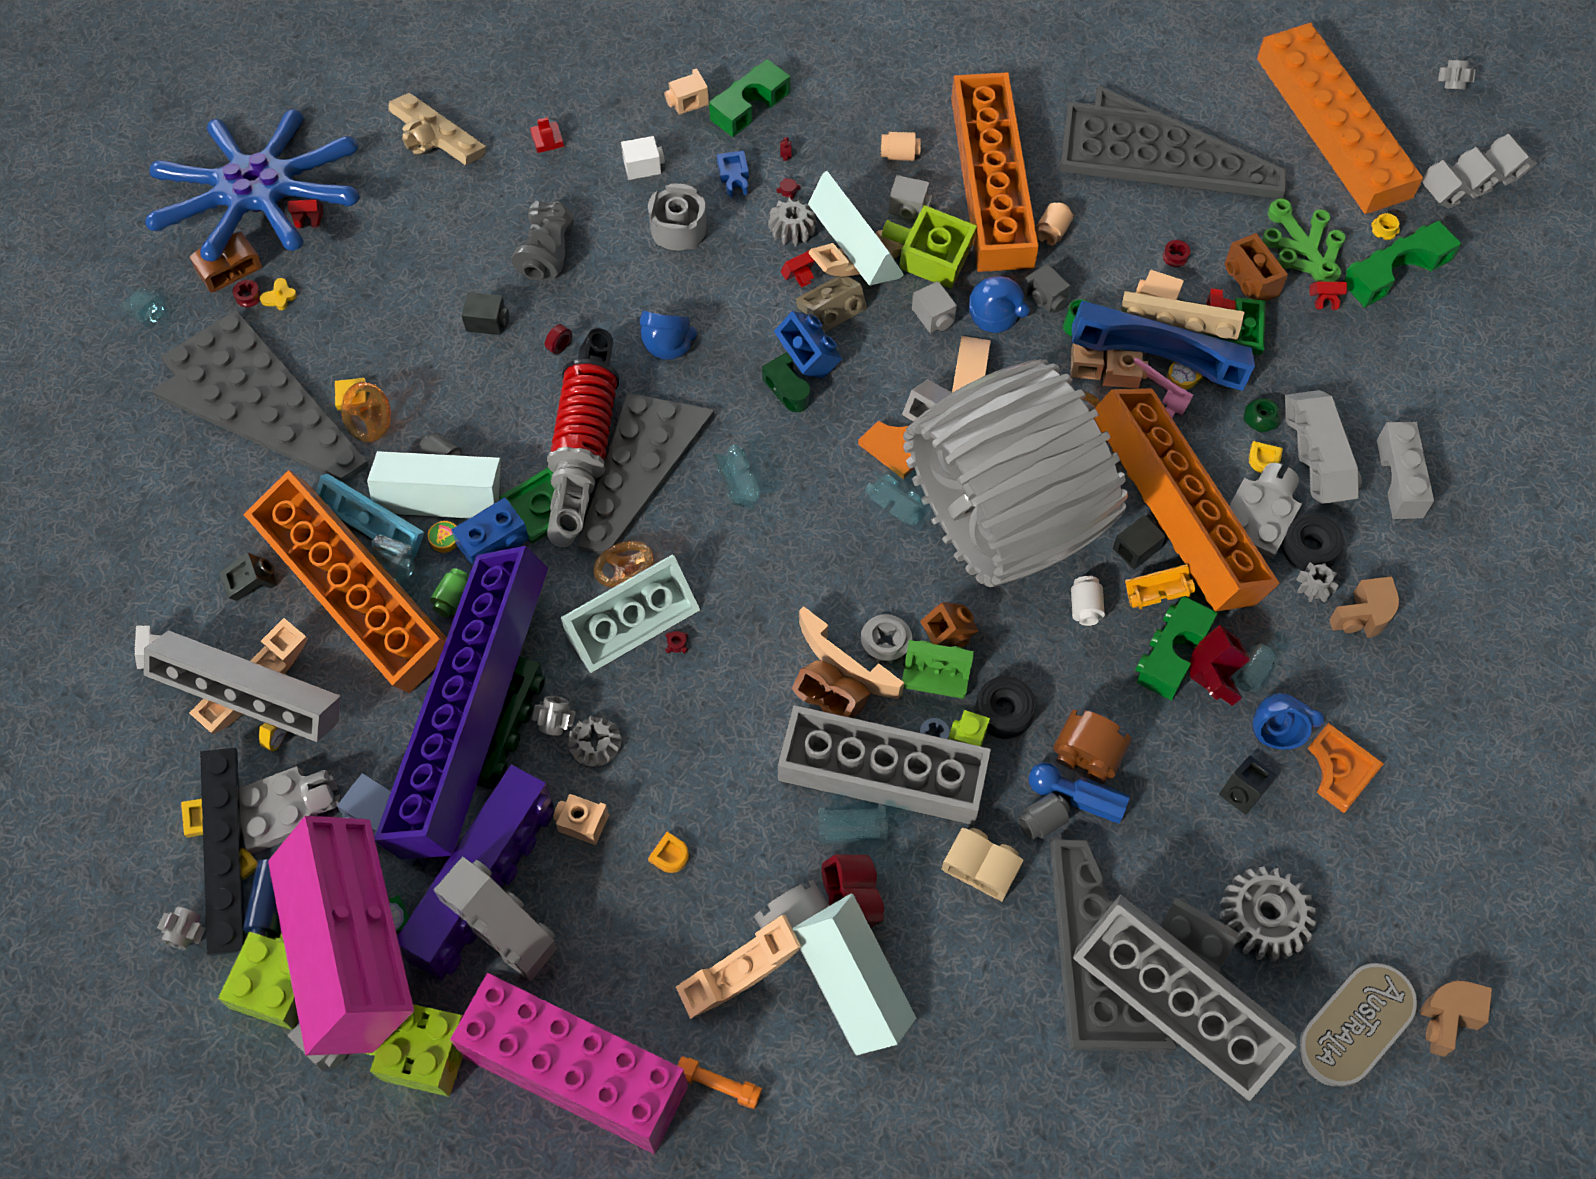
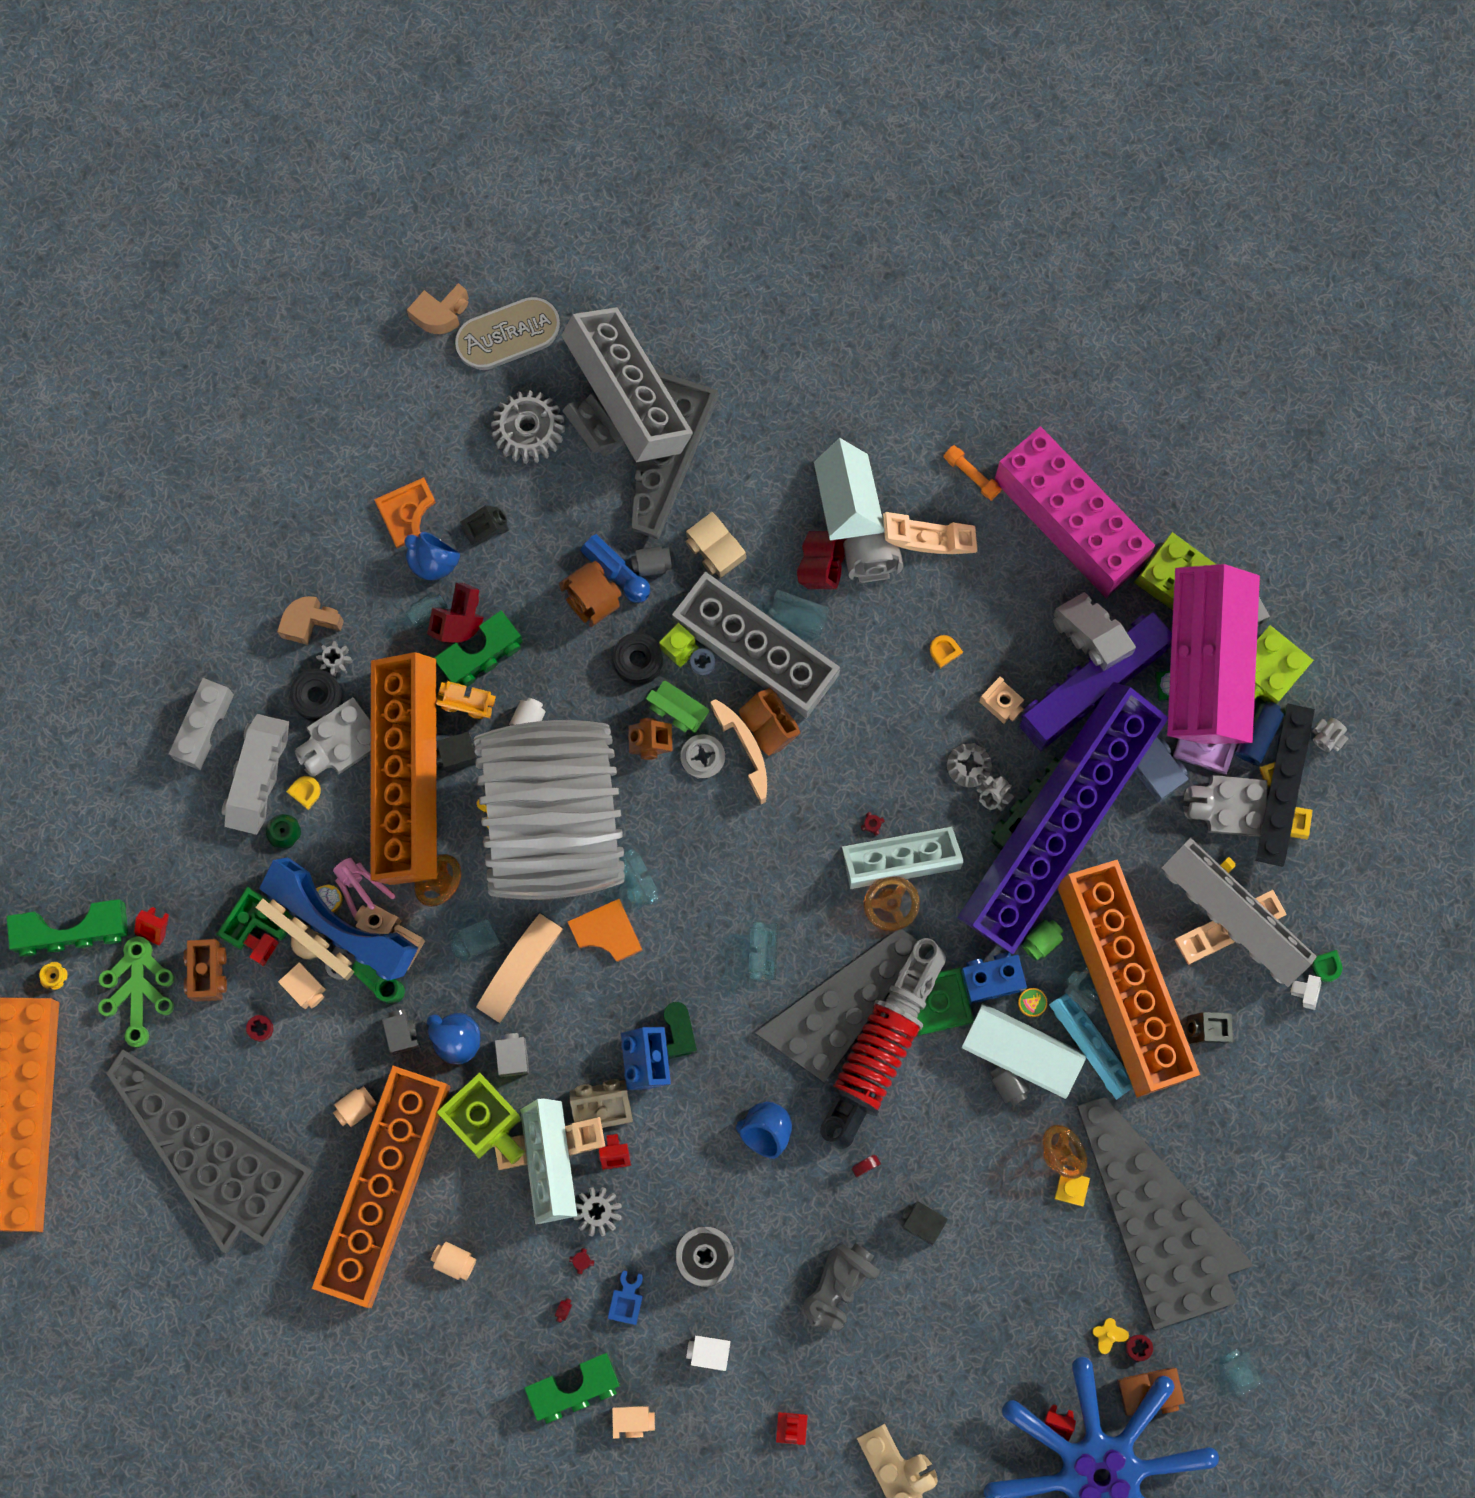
camera: 155 degrees left, 15 degrees up
(133, 685) = (1327, 966): none -> green tile
(909, 197) = (475, 1190): light grey brick -> none
(923, 398) = (568, 953): light grey brick -> none

